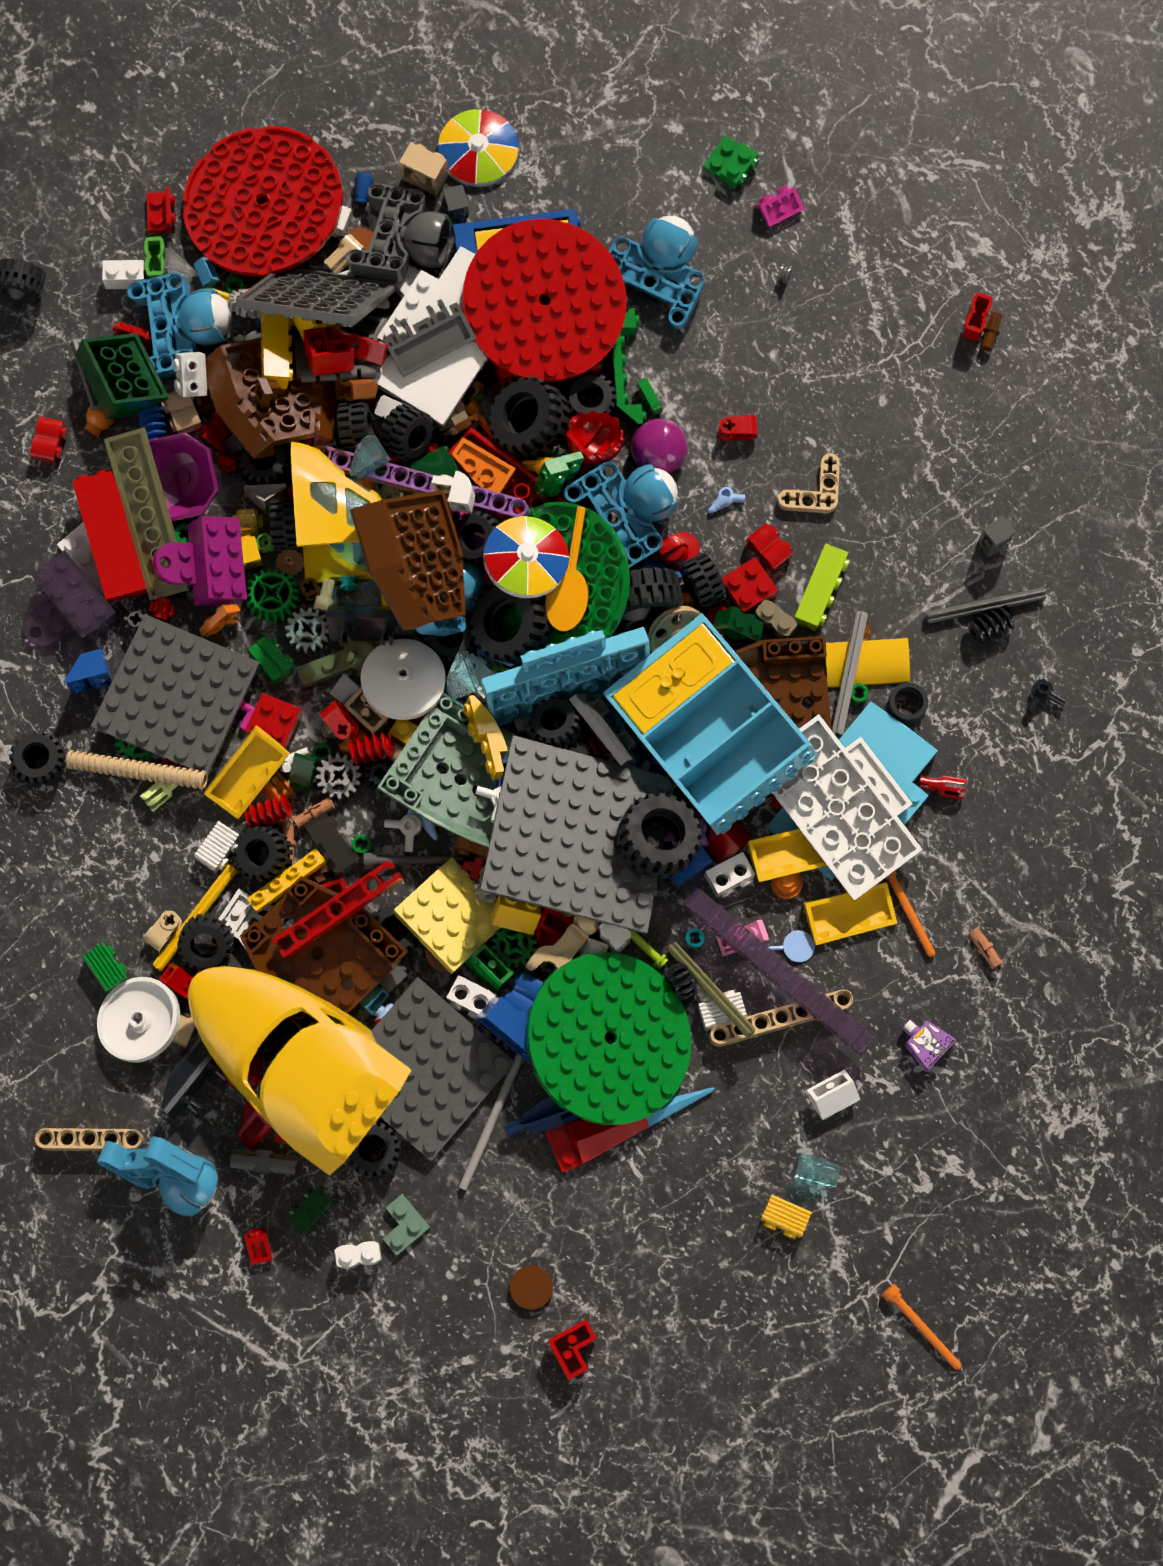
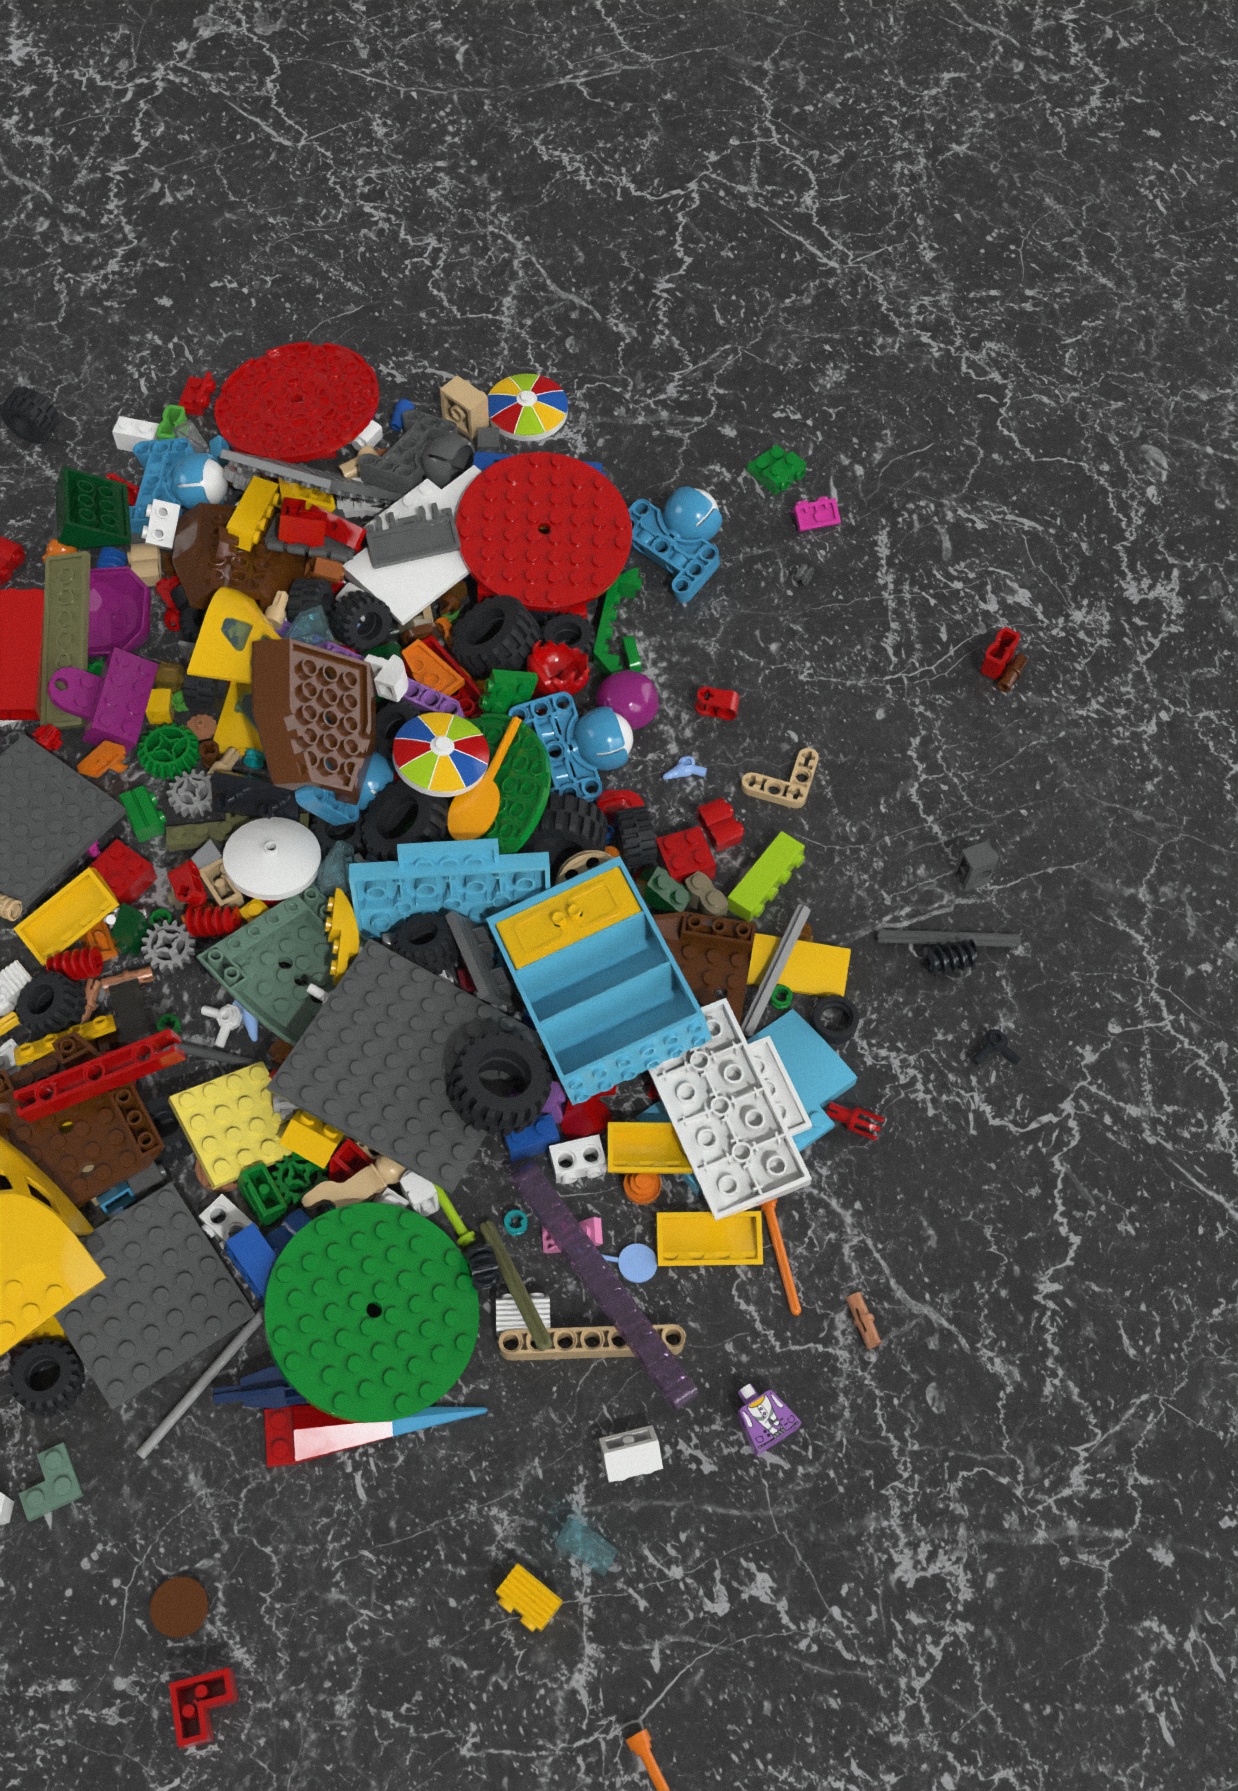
camera: 15 degrees right, 15 degrees down
(331, 447) = (275, 613): none -> tan piece

